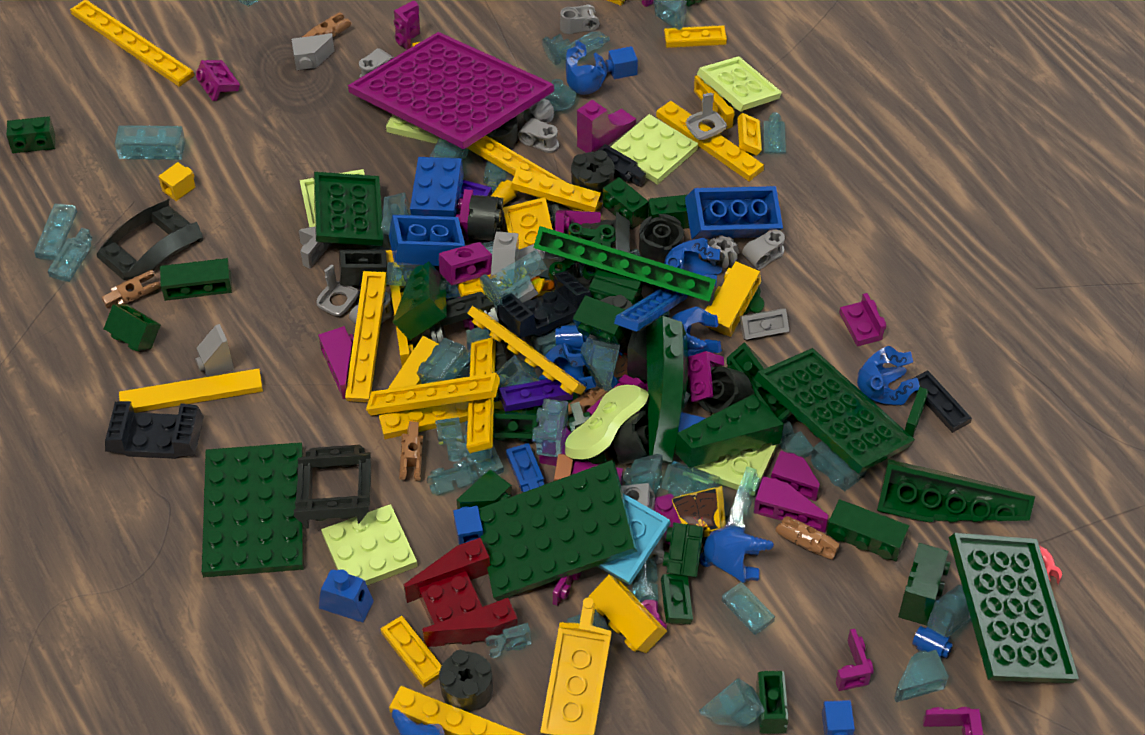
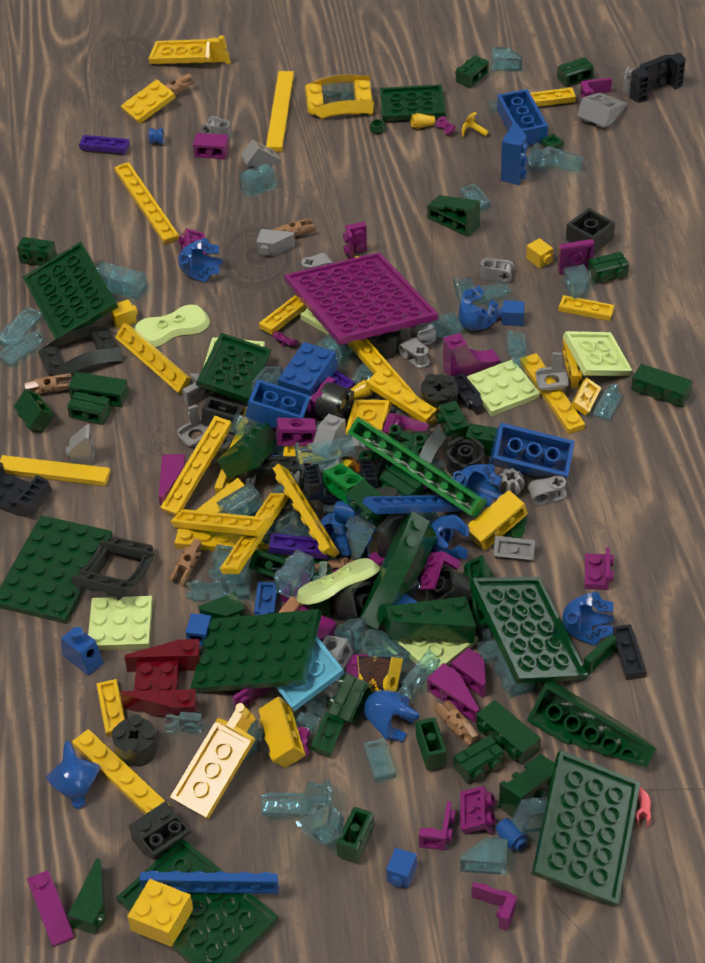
camera: 25 degrees right, 5 degrees down
(100, 171) = (70, 291): none -> dark green plate
(196, 304) = (89, 408): none -> dark green brick
(229, 96) = (195, 263): none -> blue piece
(229, 189) = (183, 321): none -> yellowish green plate
(241, 223) = (153, 358): none -> yellow plate
(367, 132) = (282, 315): none -> yellow plate
(383, 160) = (280, 336): none -> magenta piece
(555, 306) = (340, 480): none -> green brick
(646, 98) = (516, 346): none -> clear light blue hinge
(691, 687) = (297, 803): none -> clear light blue piece
(797, 571) = (431, 744): none -> dark green brick
(821, 100) = (661, 385): none -> dark green brick
(854, 571) = (478, 760): none -> dark green brick
(881, 629) = (477, 810): none -> magenta bracket

